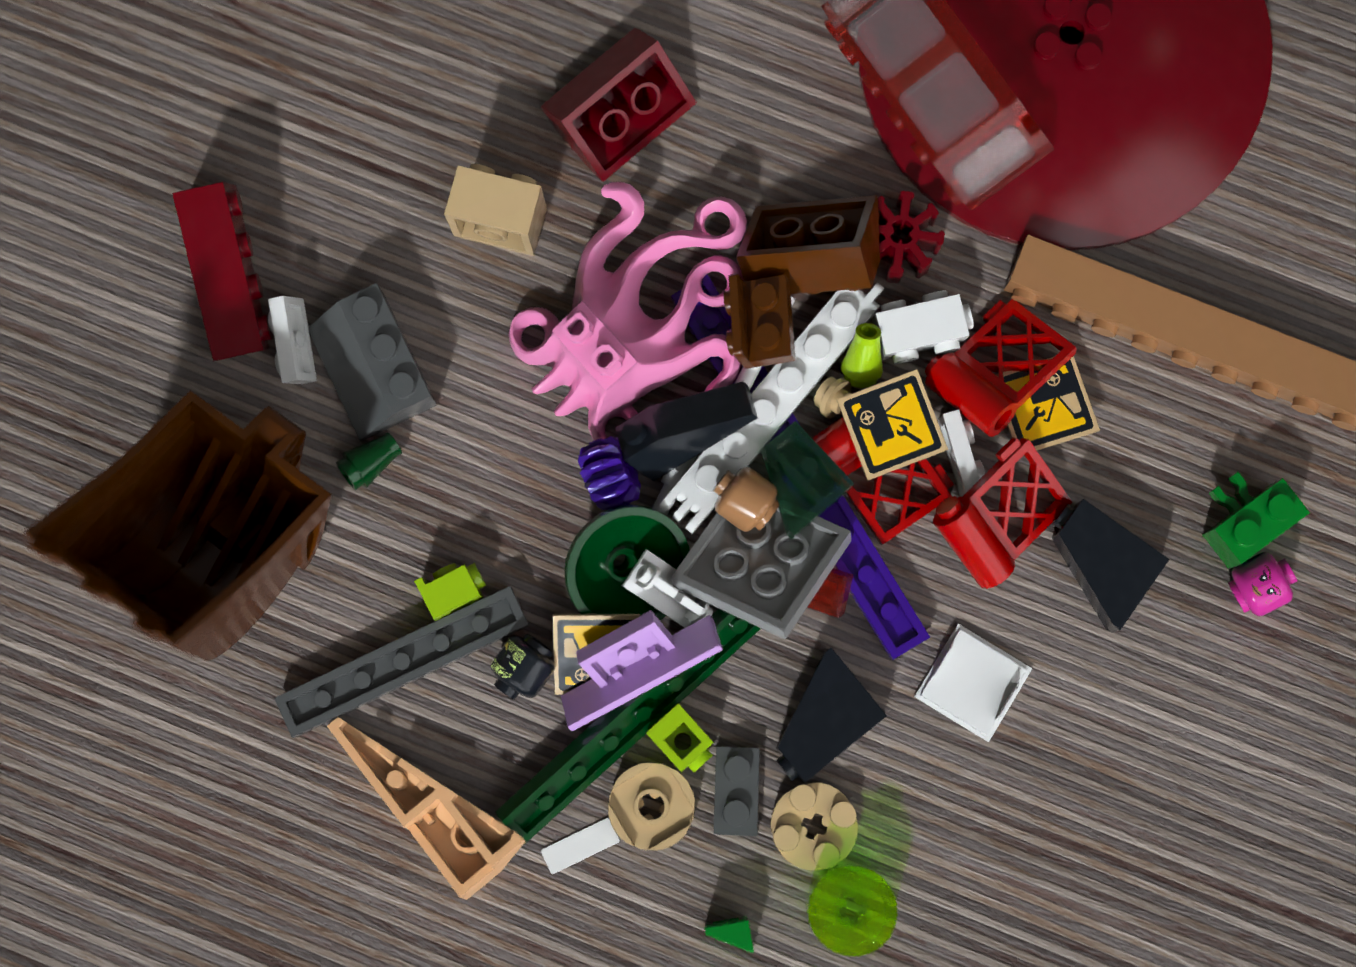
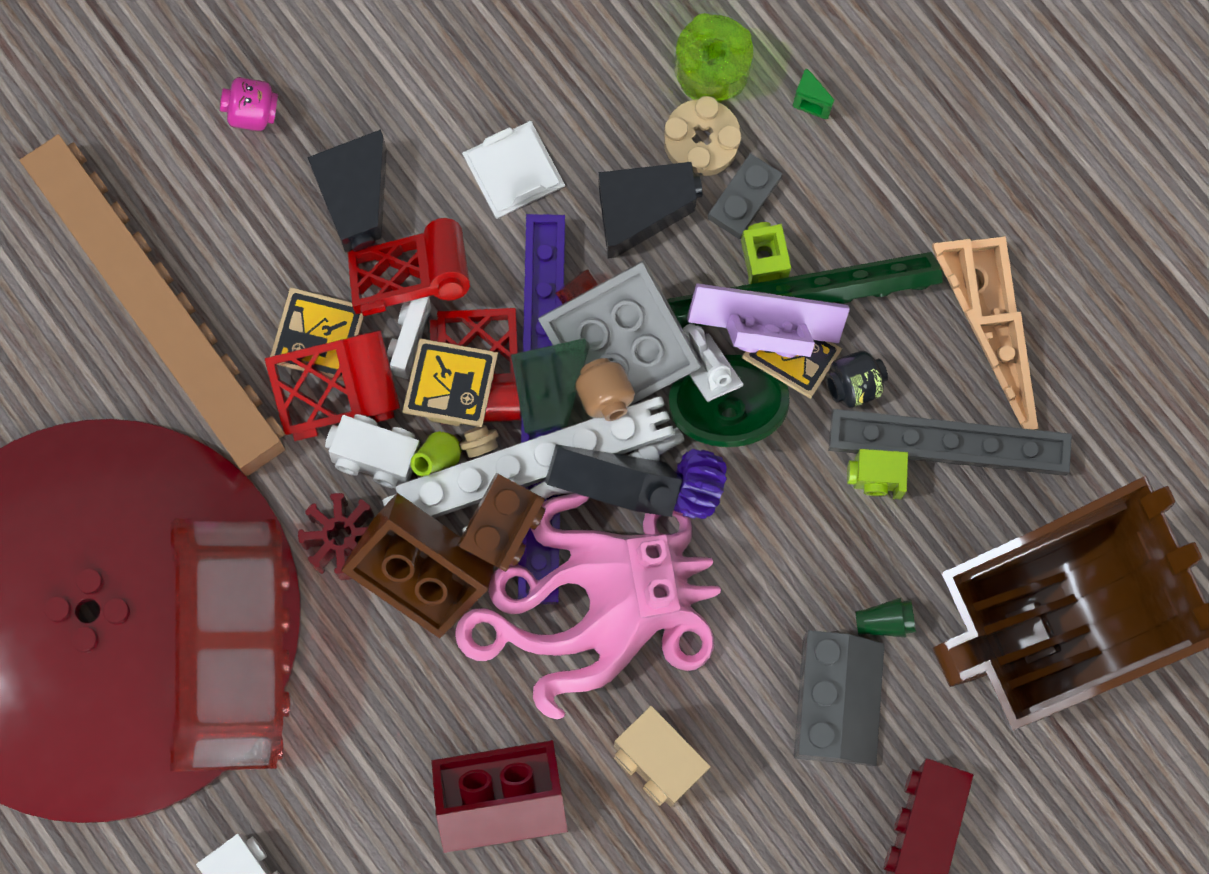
camera: 155 degrees left, 5 degrees down
(292, 340) = (895, 756): white plate -> none
(580, 846) = (888, 228): white sticker -> none
(627, 799) = (833, 205): tan plate -> none
(1253, 522) = (221, 151): green brick -> none

